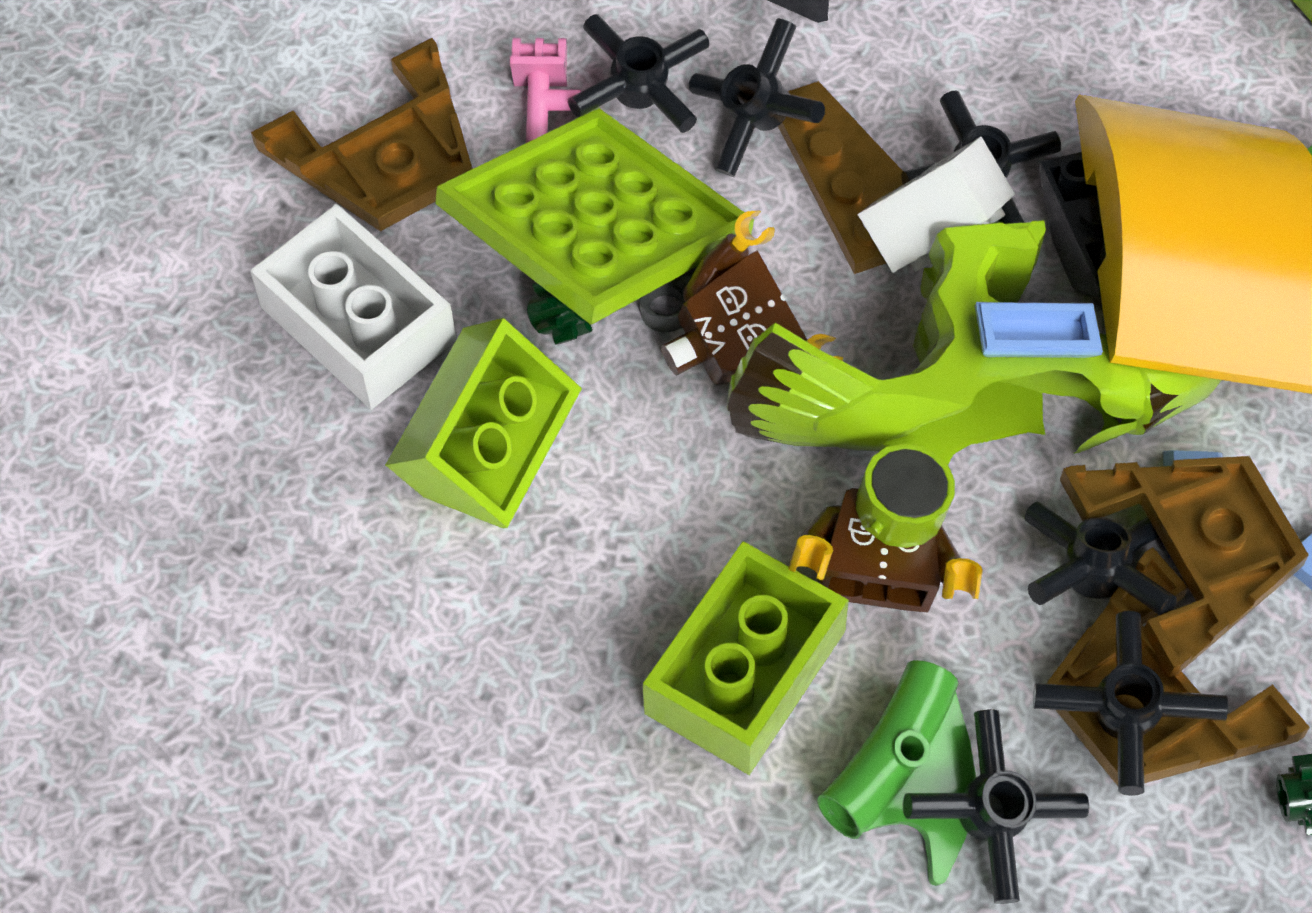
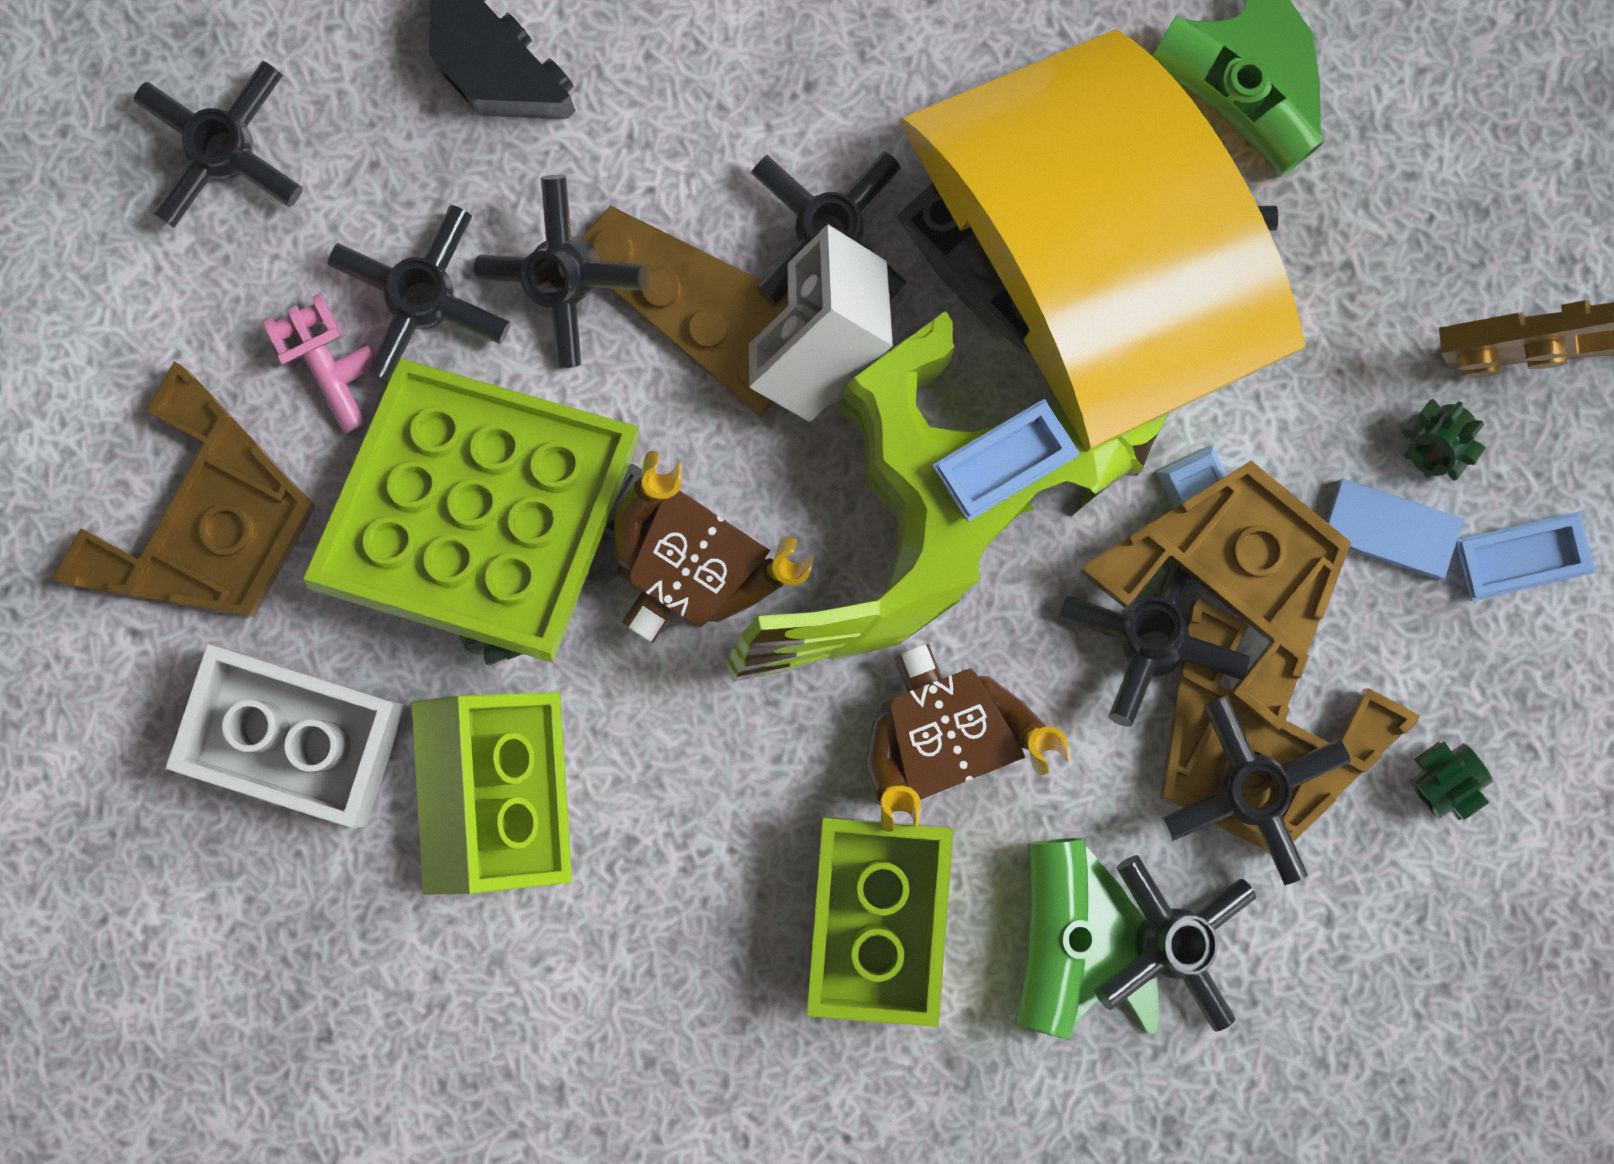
camera: 30 degrees left, 25 degrees up
(905, 495) = (954, 690): piece -> none

